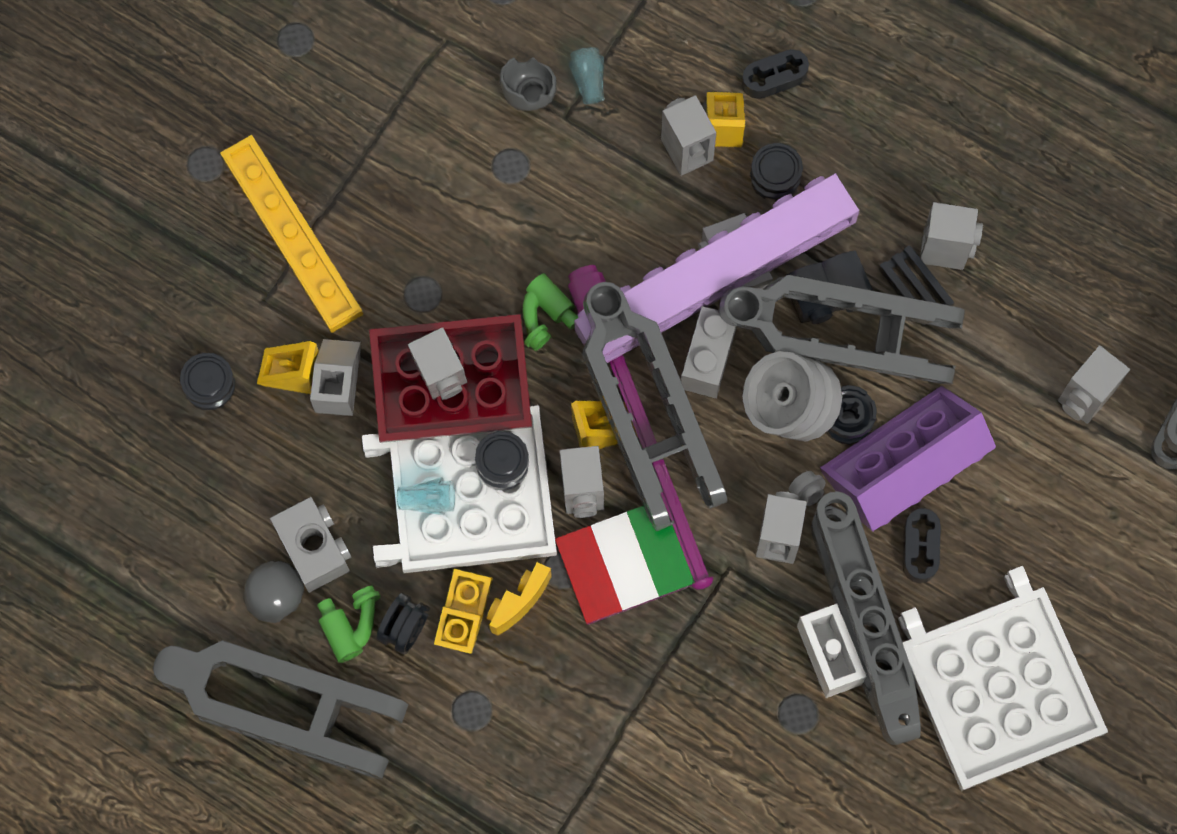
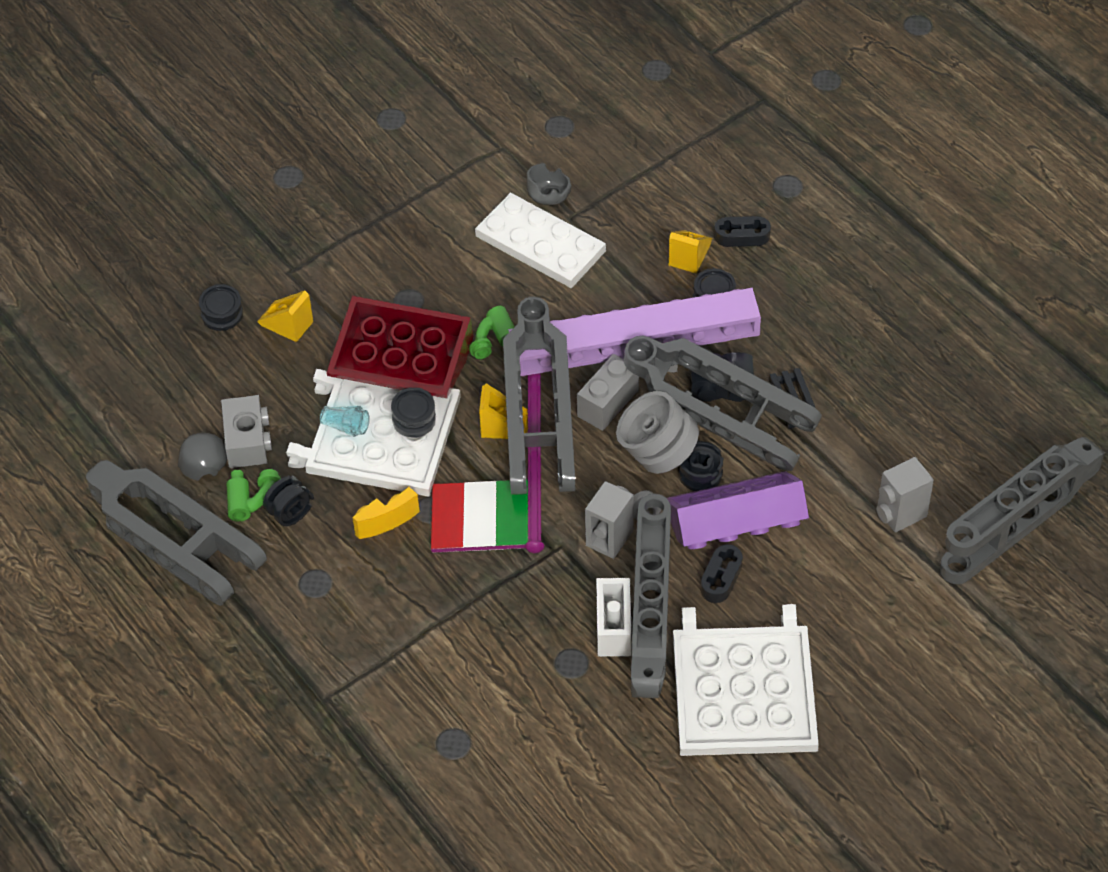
camera: 20 degrees right, 20 degrees down
(291, 234) = (329, 235): yellow tile -> none
(335, 377) = (314, 330): light grey slope -> none
(438, 364) = (389, 321): light grey brick -> none
(463, 611) = (337, 515): yellow slope -> none
(545, 160) = (540, 240): none -> white plate
(582, 481) = (468, 442): light grey brick -> none
(588, 72) = (598, 190): clear light blue cone -> none
(688, 134) = (653, 244): light grey brick -> none
(950, 236) = (830, 363): light grey brick -> none

